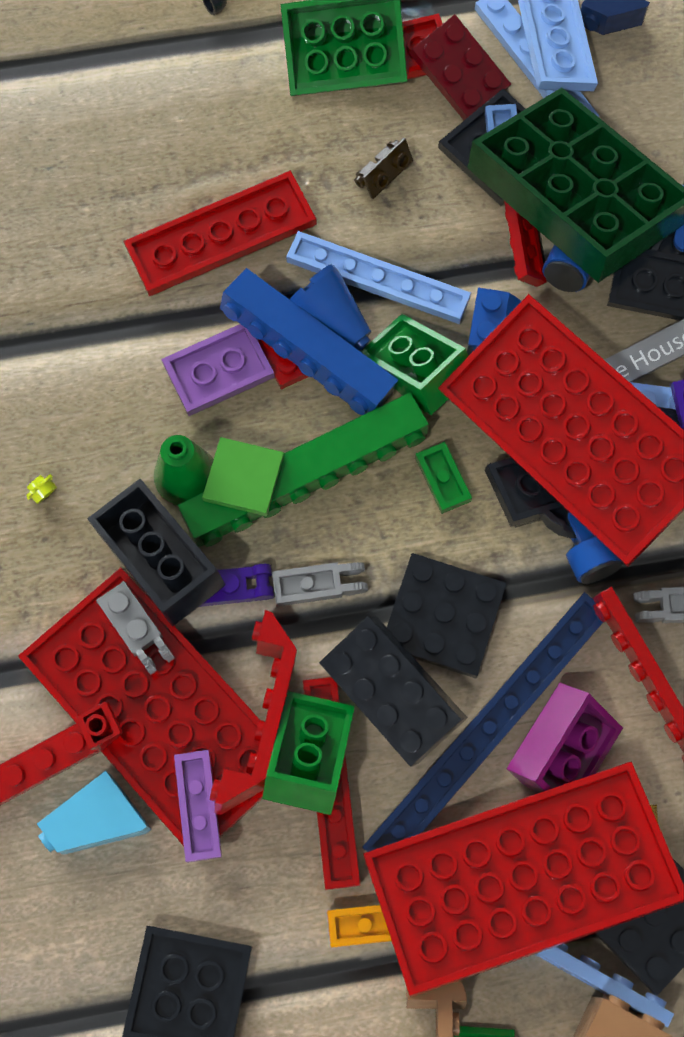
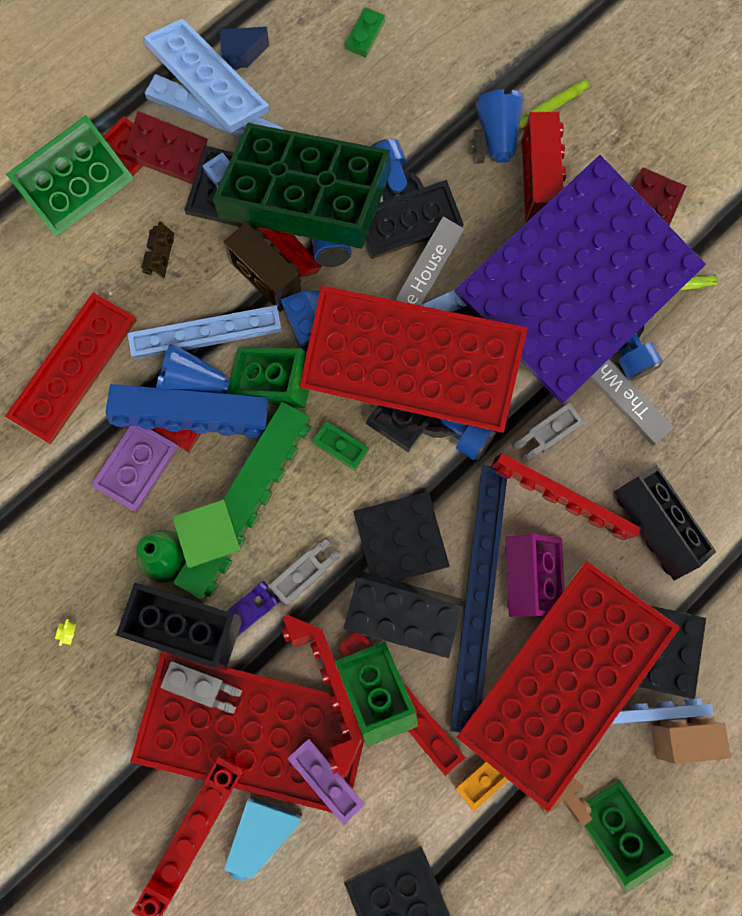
camera: 40 degrees left, 5 degrees up
(482, 241) = (262, 264): none -> dark brown brick

